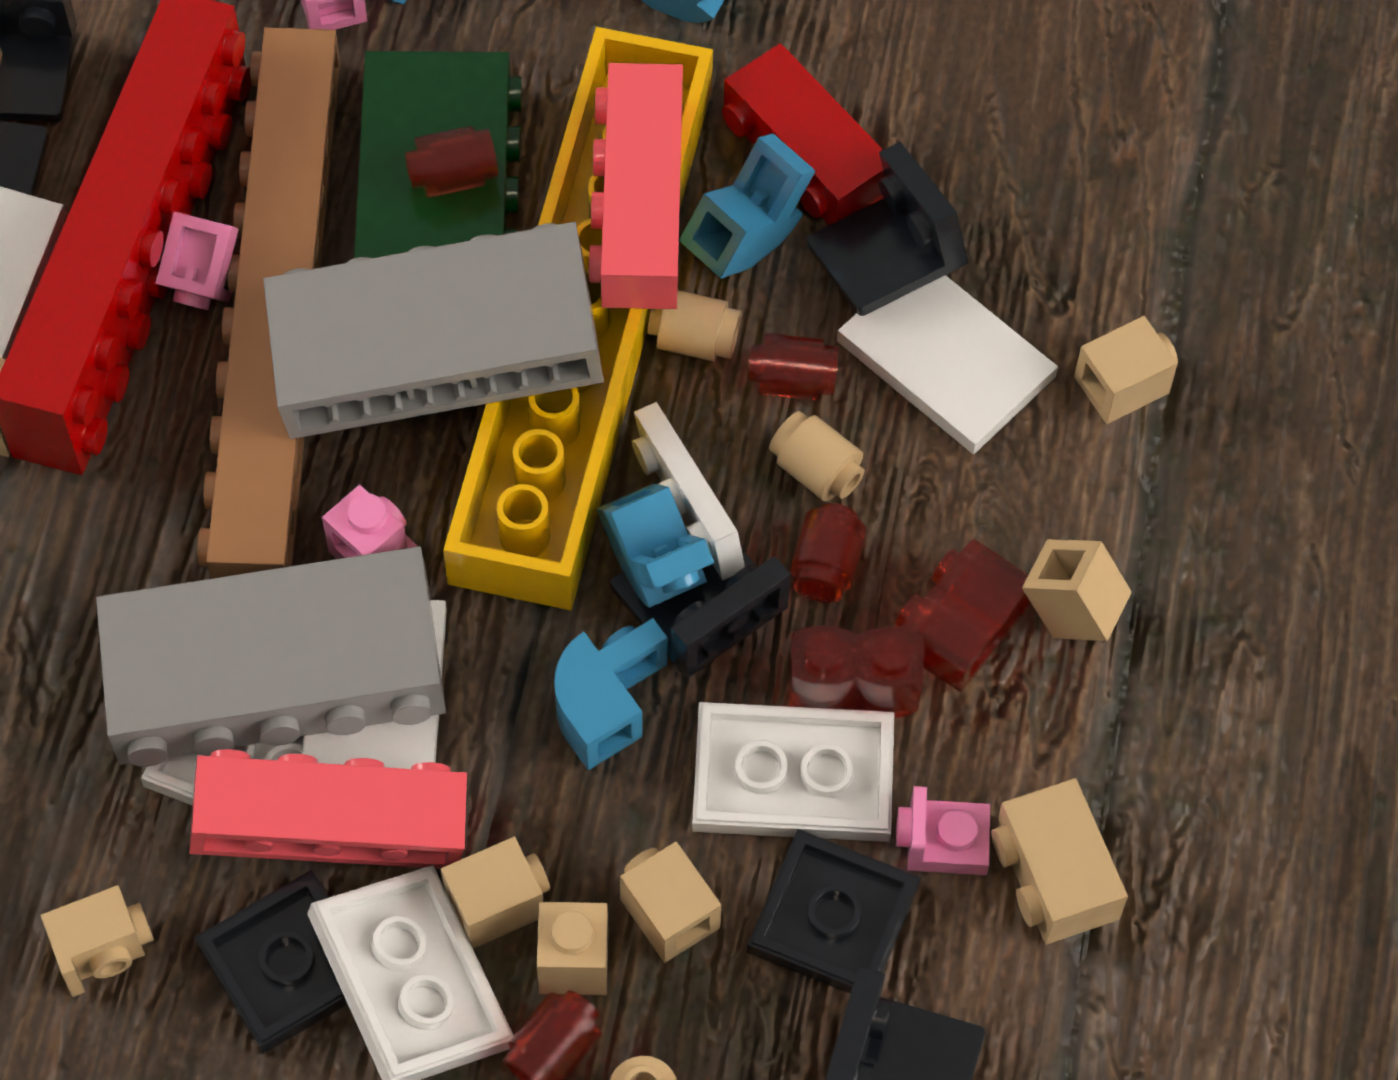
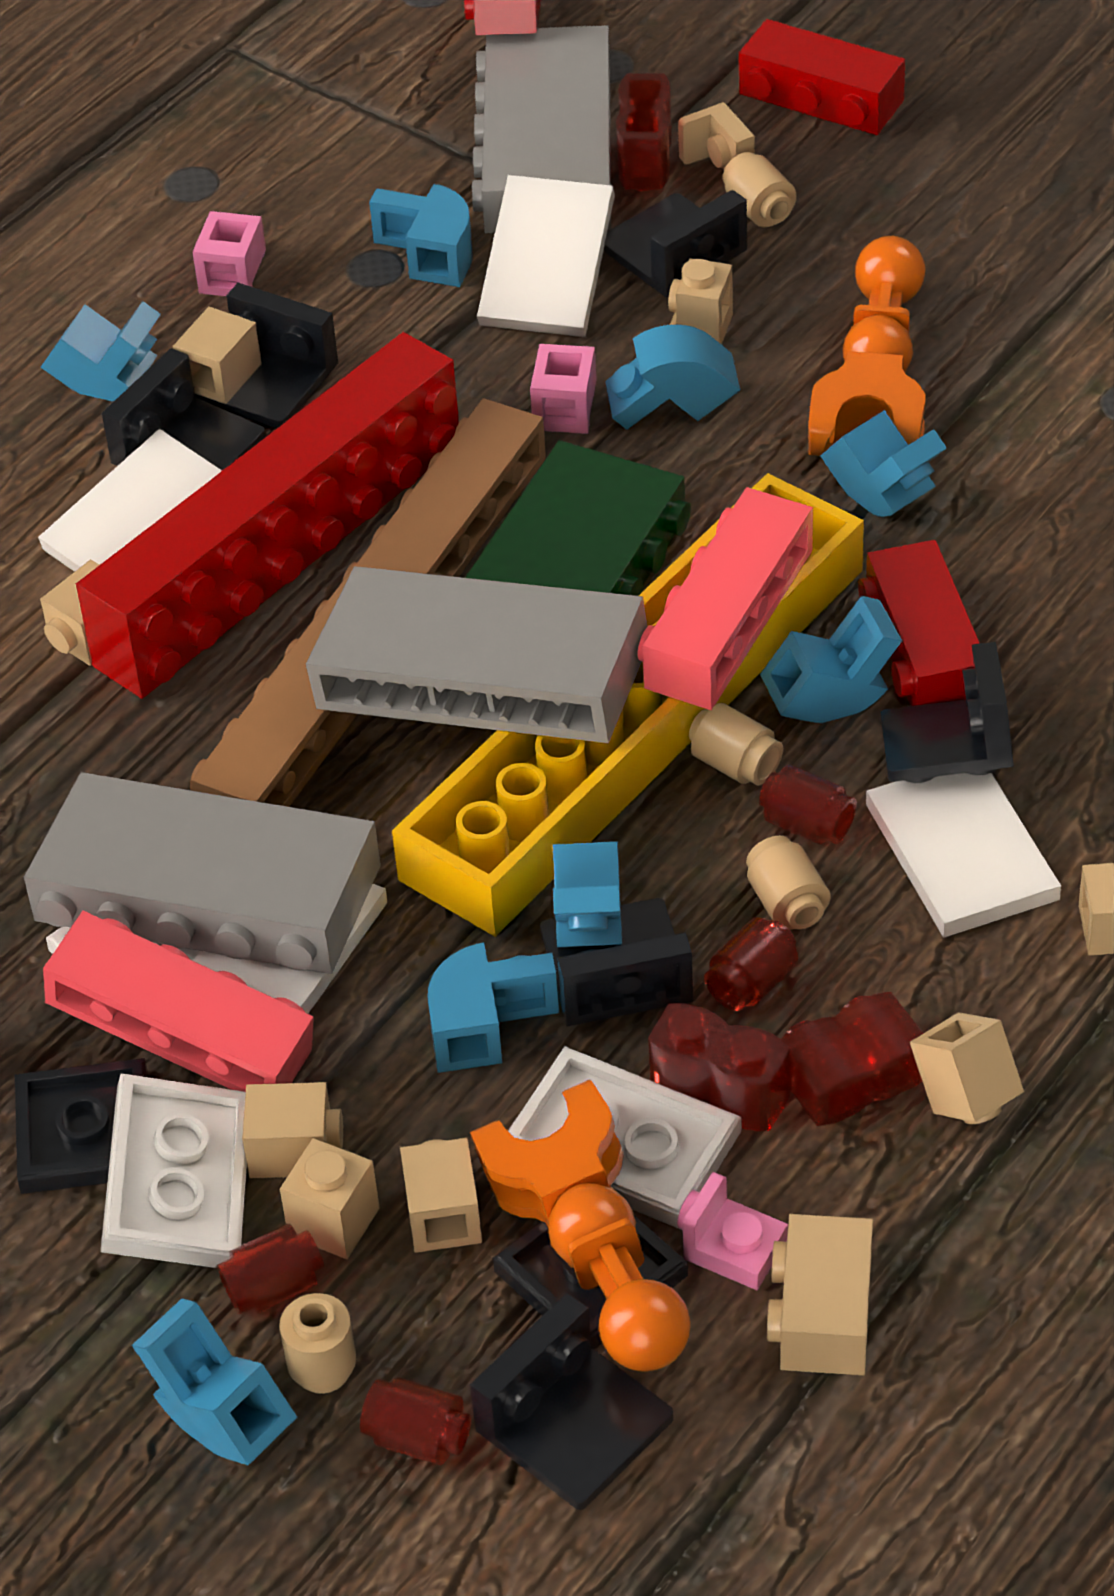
camera: 30 degrees right, 15 degrees down
(197, 260) = (321, 553): bright pink bracket -> none
(364, 526) = (343, 793): bright pink brick -> none
(451, 161) = (576, 535): clear red brick -> none
(664, 453) = (642, 864): white plate -> none
(833, 883) = (589, 1223): none -> orange piece

